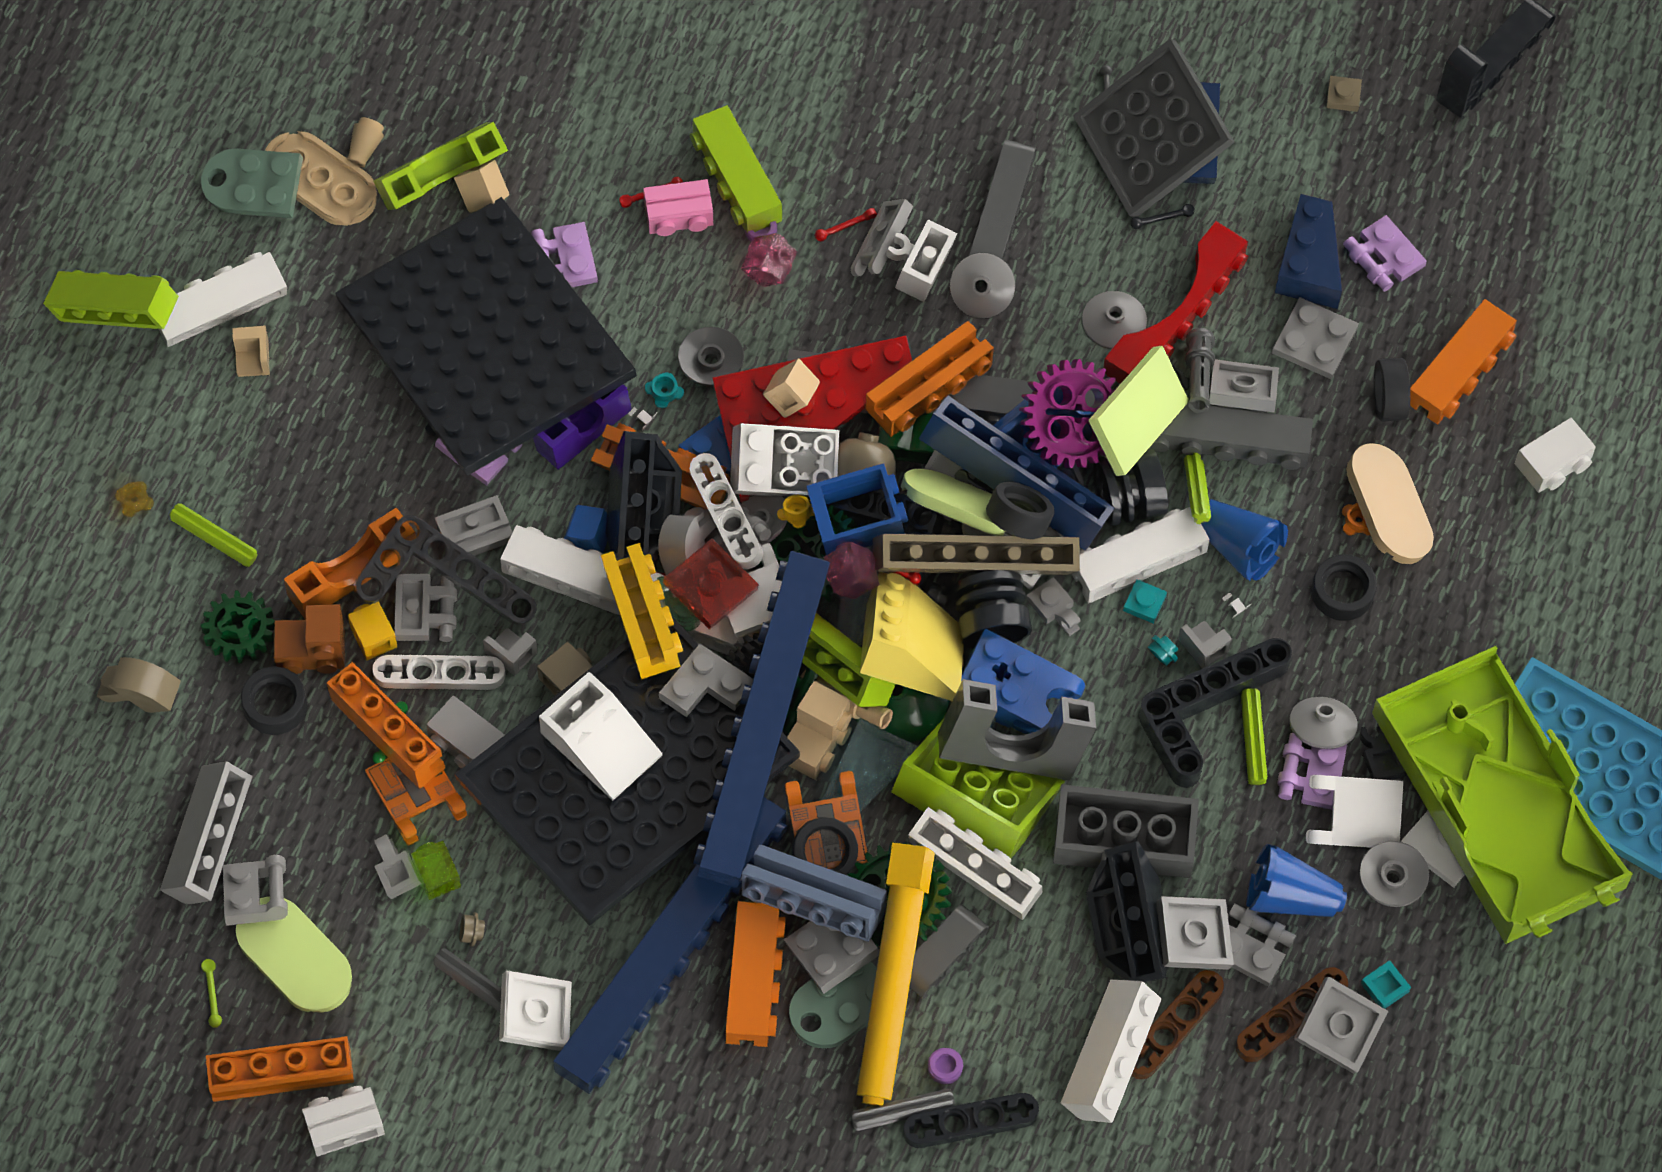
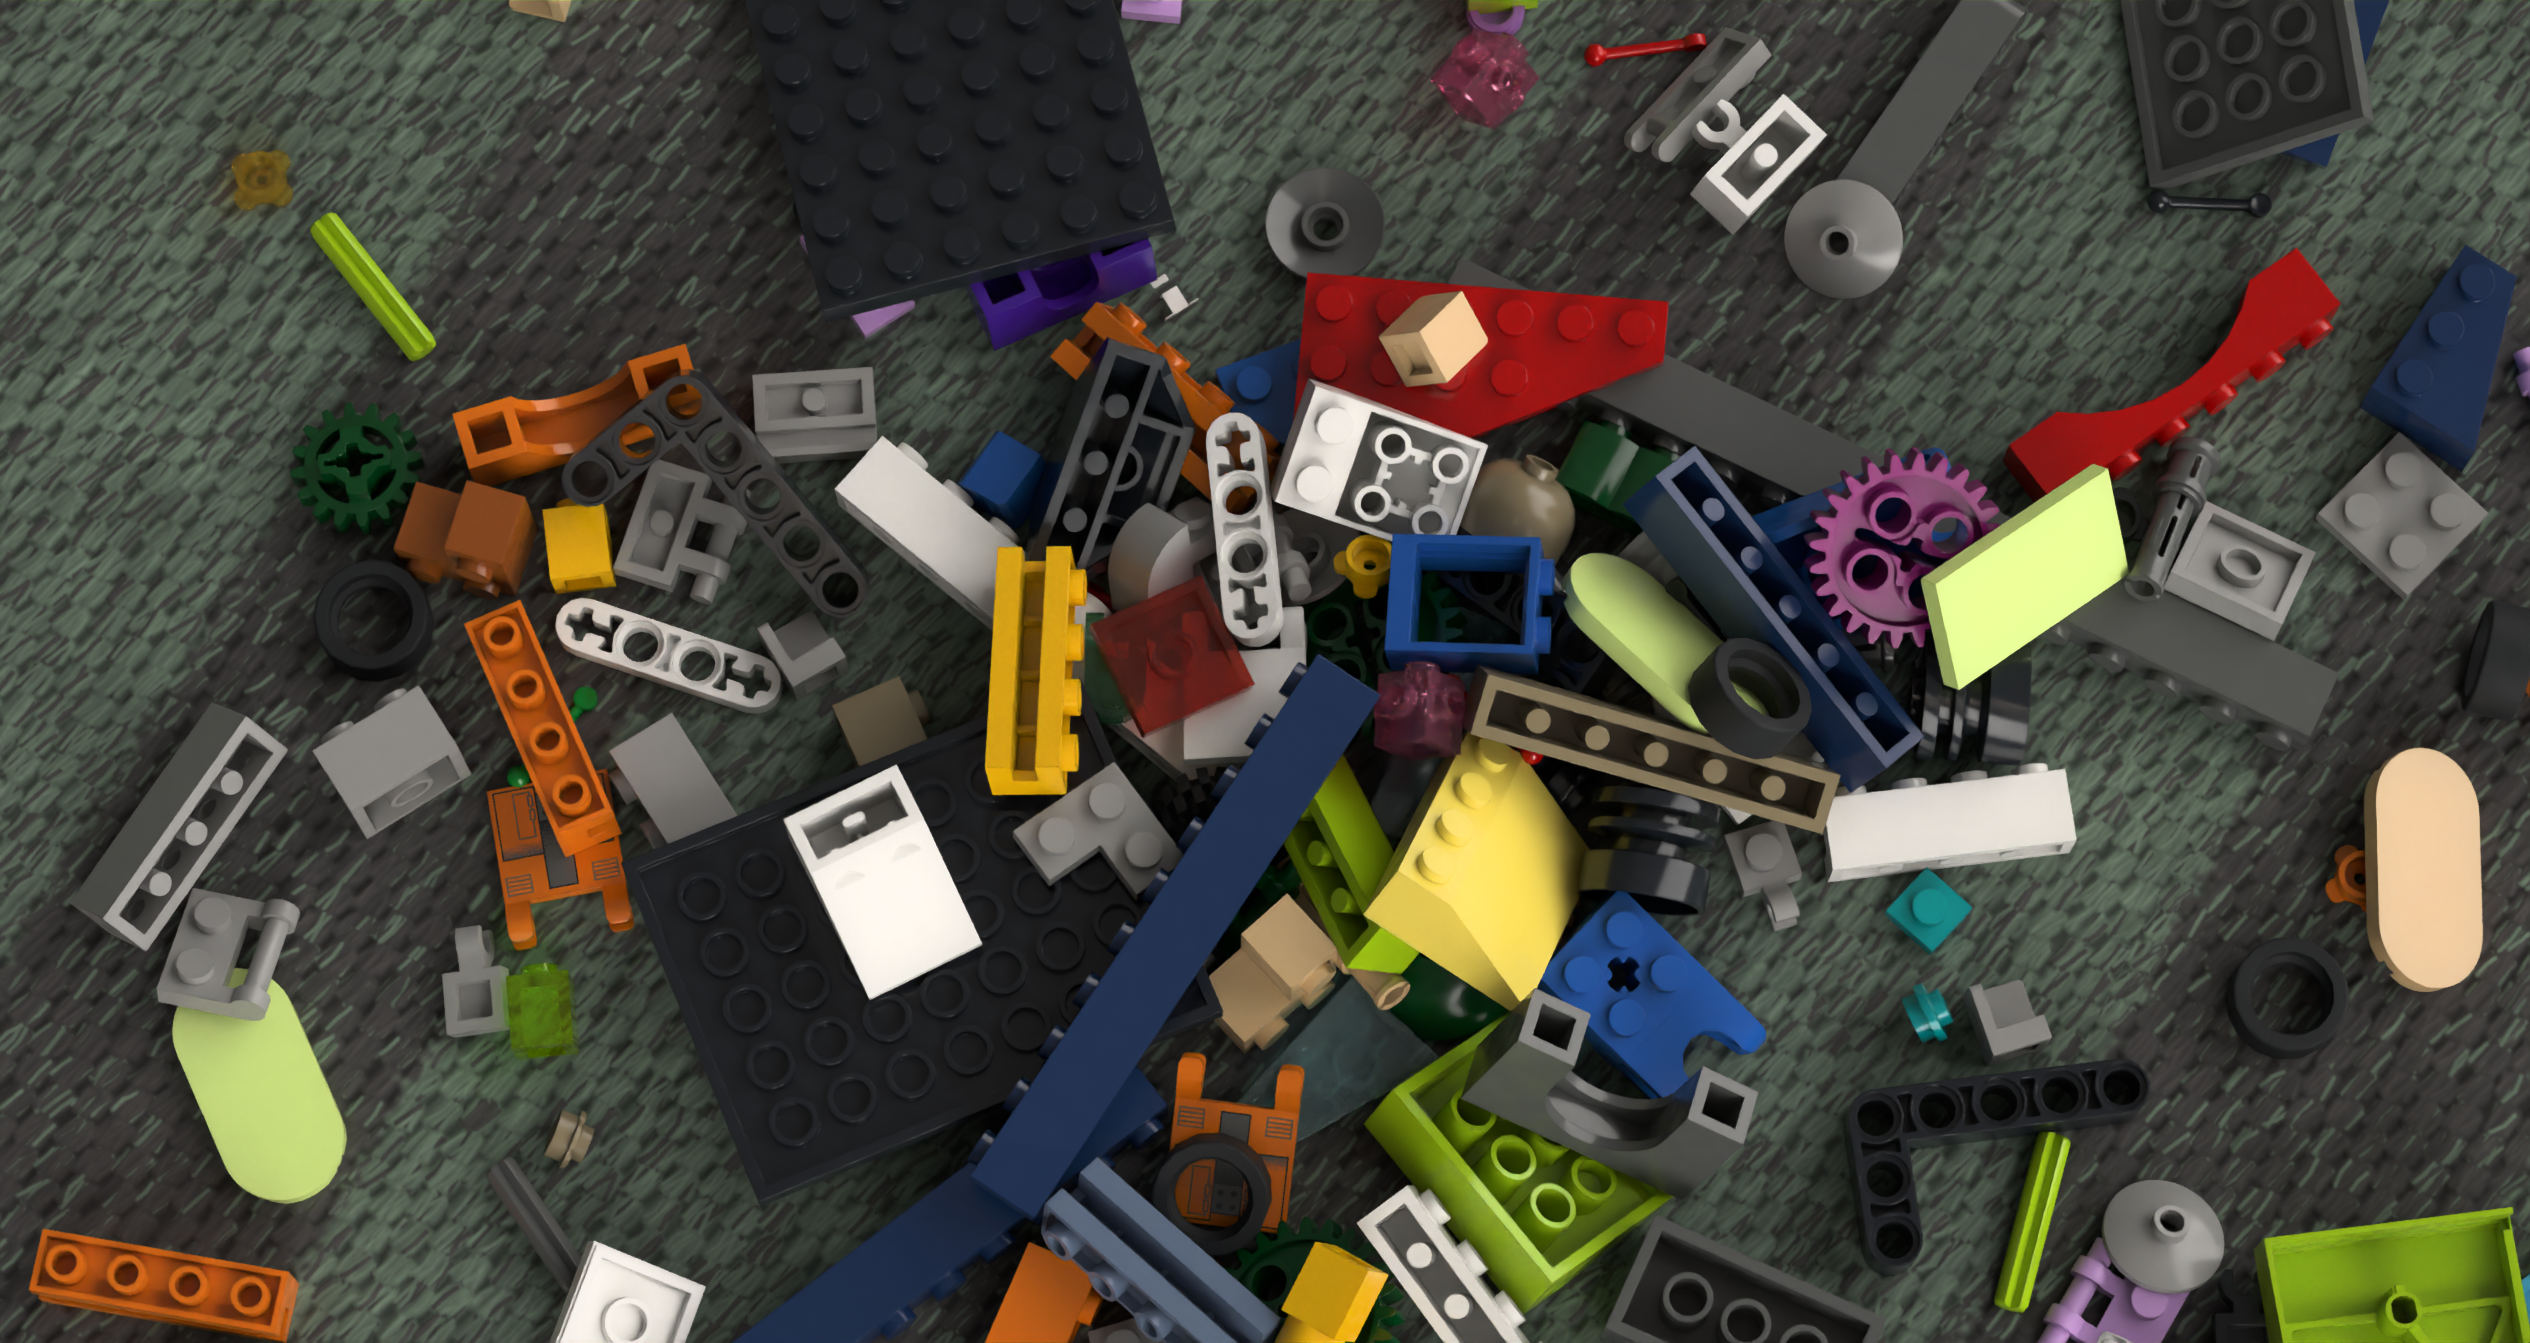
camera: 20 degrees right, 10 degrees up
(139, 683) = (156, 524): dark tan brick -> none
(208, 967) = (111, 1059): lime hinge -> none
(311, 763) = (391, 760): none -> light grey brick
(661, 381) = (1226, 243): teal plate -> none
(929, 379) = (1684, 394): orange brick -> none
(1106, 329) = (2036, 387): light grey dish -> none
(1197, 488) = (2089, 737): lime axle -> none
(1236, 604) = (2086, 967): white piece -> none
(1245, 538) = (2136, 850): blue cone -> none

